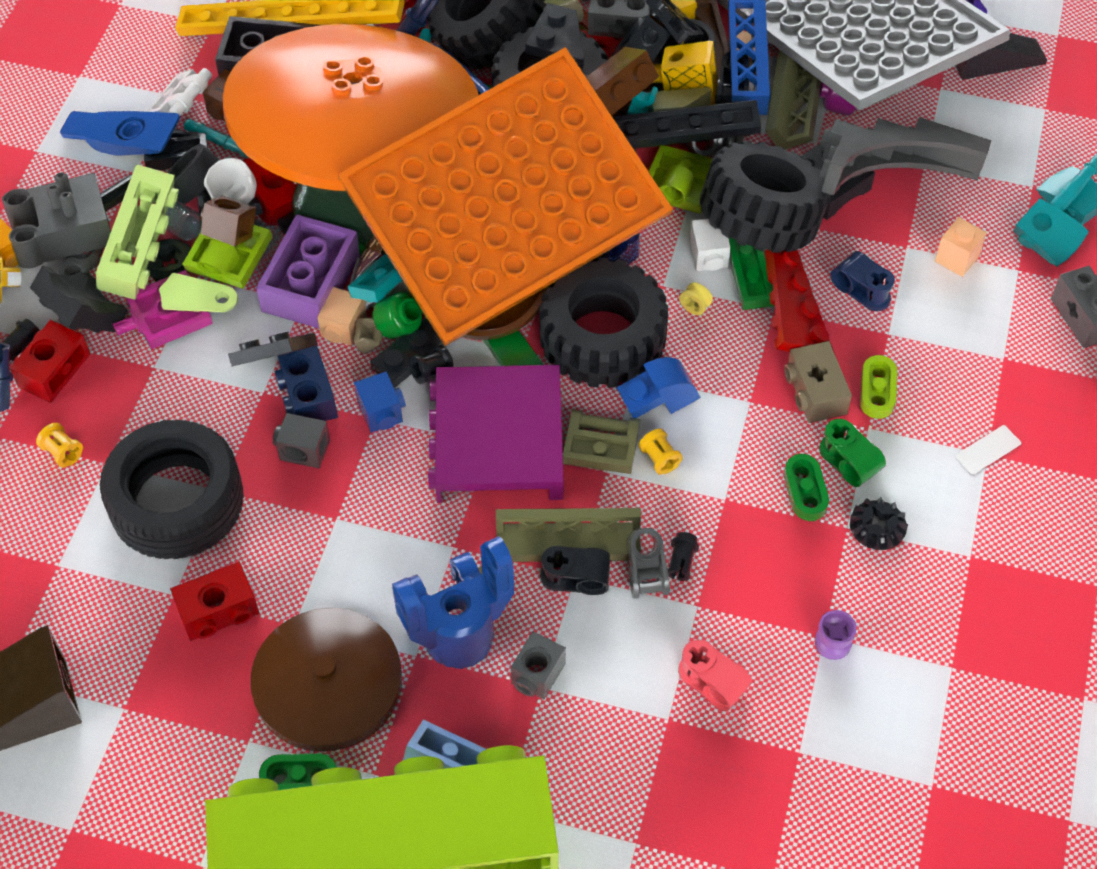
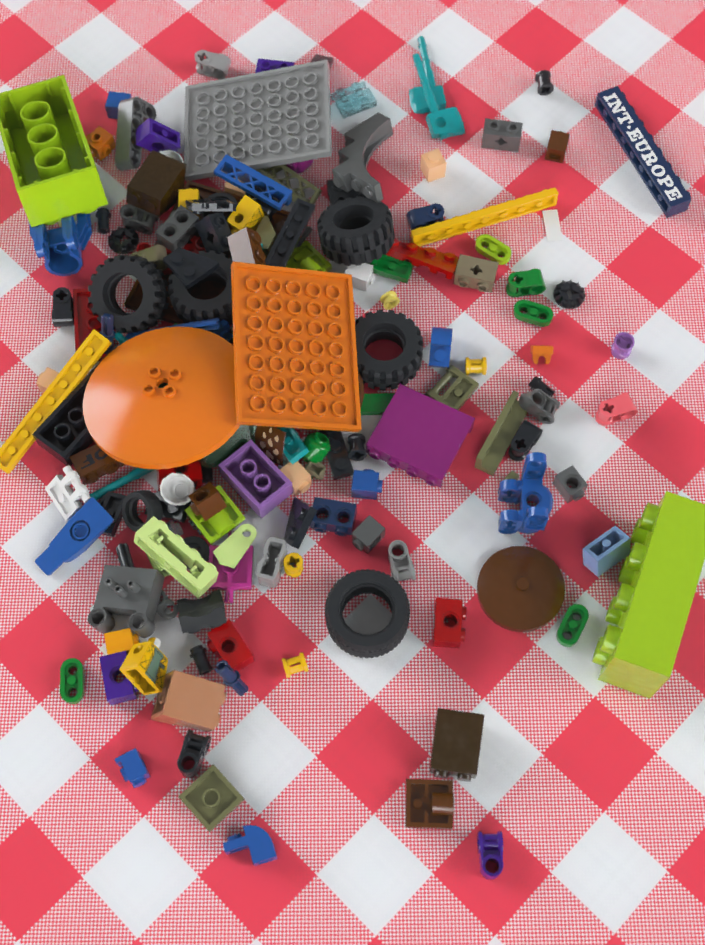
camera: 60 degrees left, 10 degrees up
(193, 345) = (270, 565): none -> light grey brick
(210, 369) = (297, 560): none -> yellow bush
(277, 500) = (401, 566): none -> light grey piece
(746, 524) = (541, 350): none -> orange tile
(927, 352) = (484, 217): none -> yellow plate
(996, 111) = (356, 102): none -> clear light blue plate

